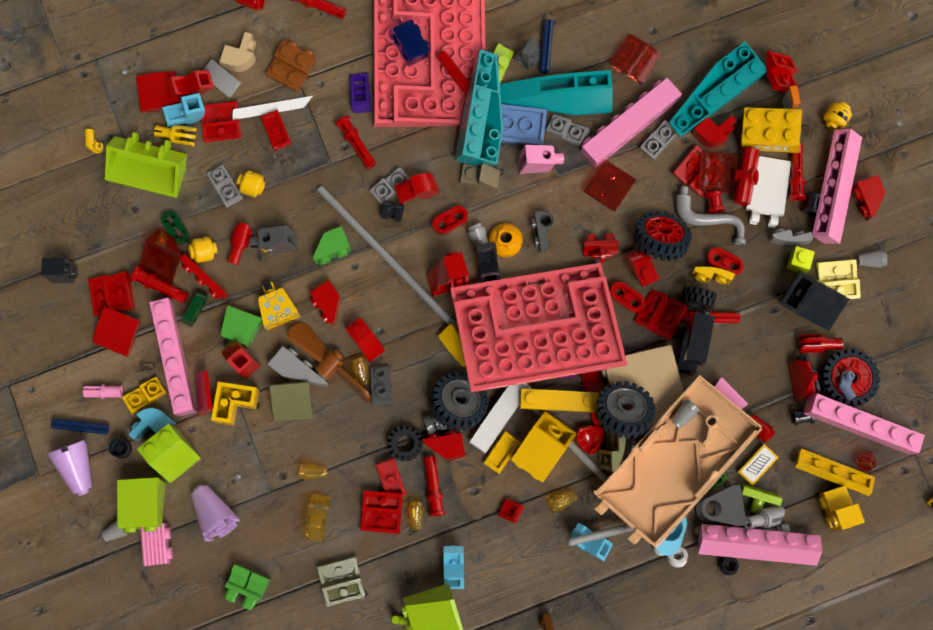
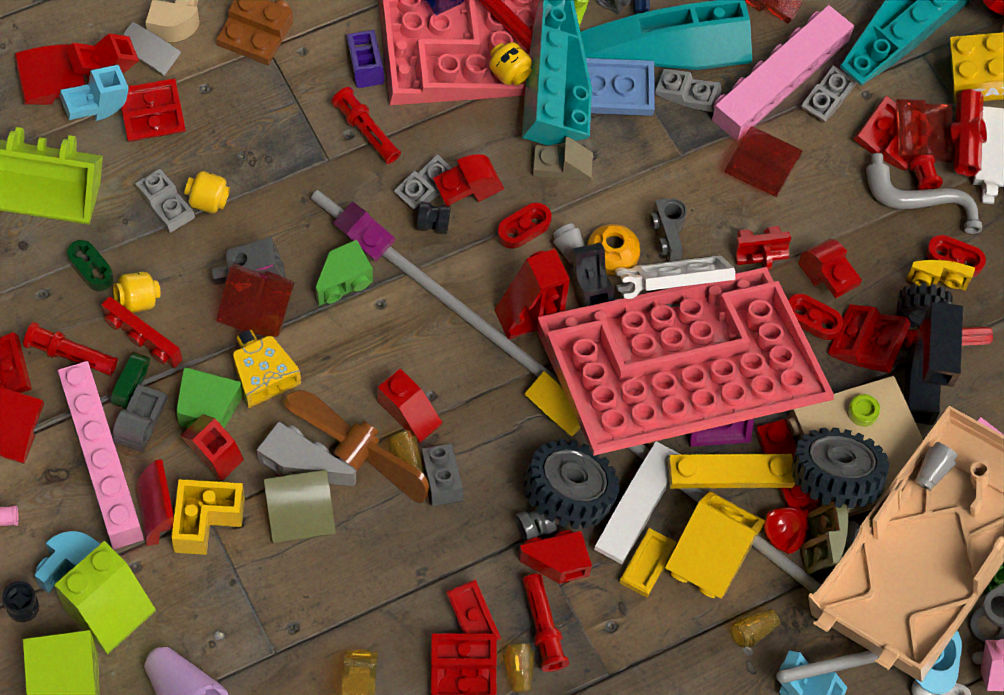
camera: 10 degrees left, 15 degrees down
(144, 395) = (58, 516): yellow slope -> none
(161, 256) = (71, 305): clear red slope -> none
(174, 134) = (87, 129): yellow arm -> none
(199, 334) = (138, 421): none -> dark grey plate
(239, 240) = (195, 277): red arm -> none
(267, 108) = (228, 87): white sticker -> none
(274, 264) = (255, 301): none -> clear red slope
(276, 130) = (239, 116): red plate -> none
(311, 471) = (342, 614): clear yellow cone -> none
(328, 301) = (343, 353): red slope -> none
(346, 216) = (362, 227): none -> magenta slope
(396, 435) = (495, 541): black tyre -> none
(451, 108) = (510, 63): none -> yellow head
(510, 511) = (674, 650): red tile -> none
(538, 159) = (649, 128): bright pink torso -> none
(541, 264) = (673, 274): none -> white tile
(648, 367) = (864, 410): none -> lime tile
(662, 236) = (856, 220): black wheel -> none
(711, 135) = (904, 81): red brick -> none

